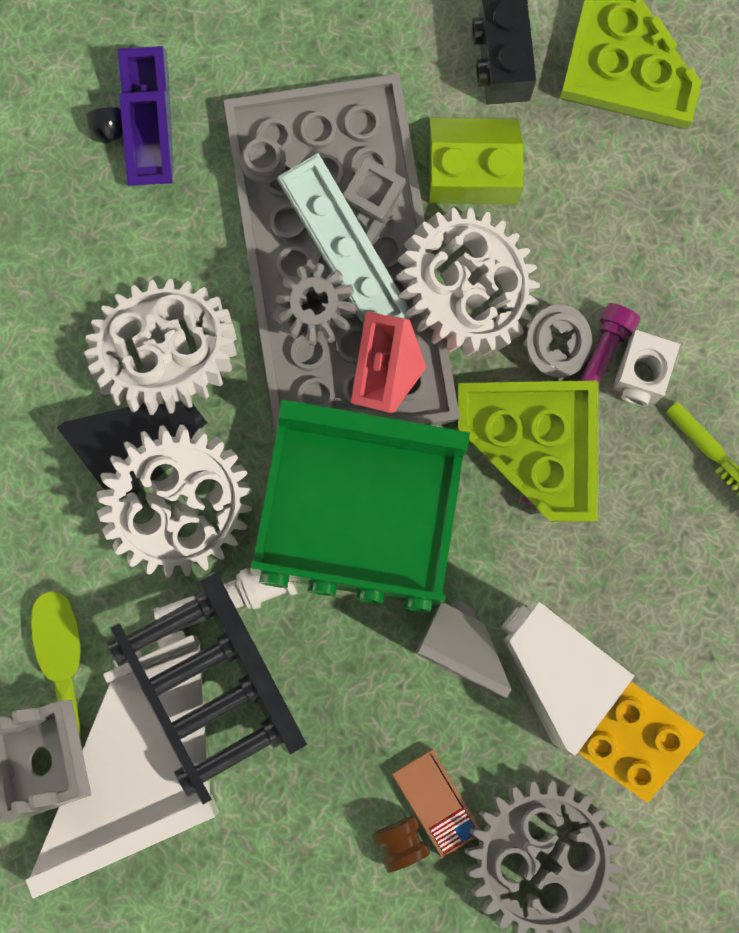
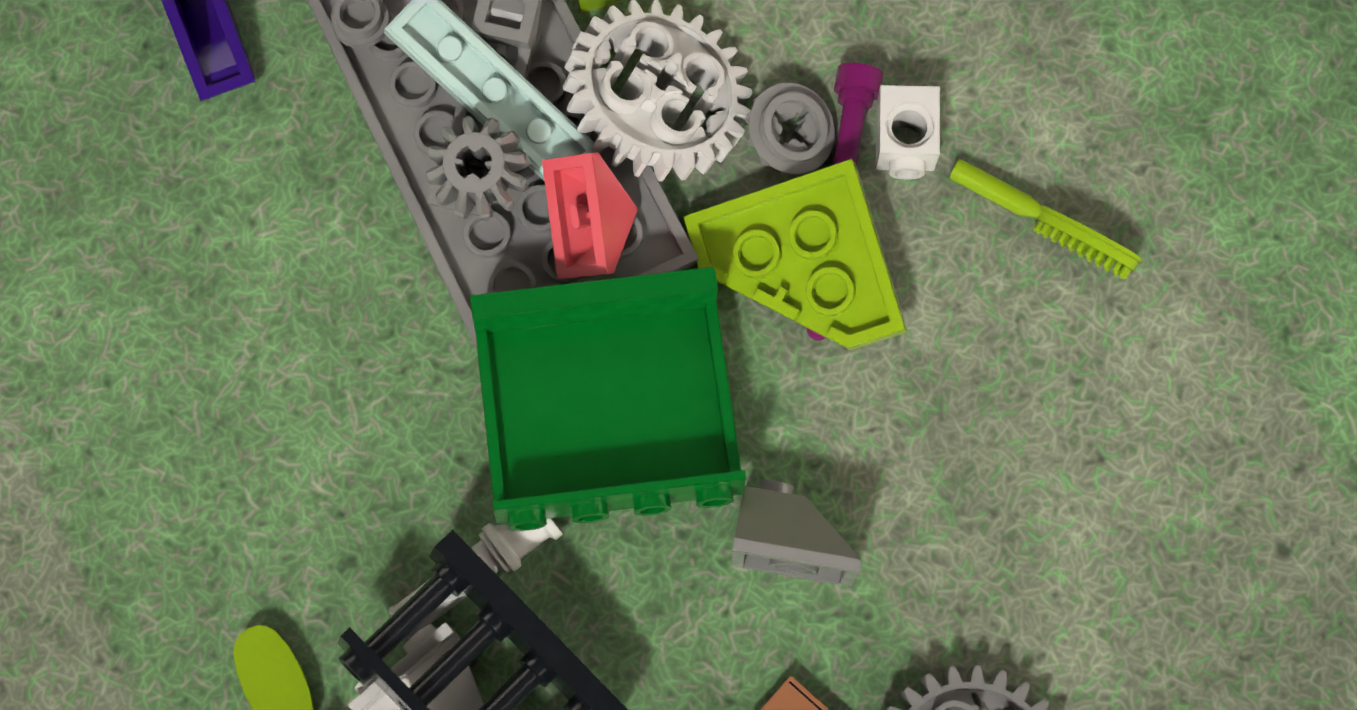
camera: 10 degrees left, 5 degrees down
(104, 435) = (303, 410): black slope -> none
(105, 124) = (150, 34): black hinge -> none
(158, 538) = (367, 517): white gear -> none
(161, 346) = (300, 281): white gear -> none
(562, 674) = (918, 526): white slope -> none
(640, 742) = (1040, 584): yellow hinge -> none

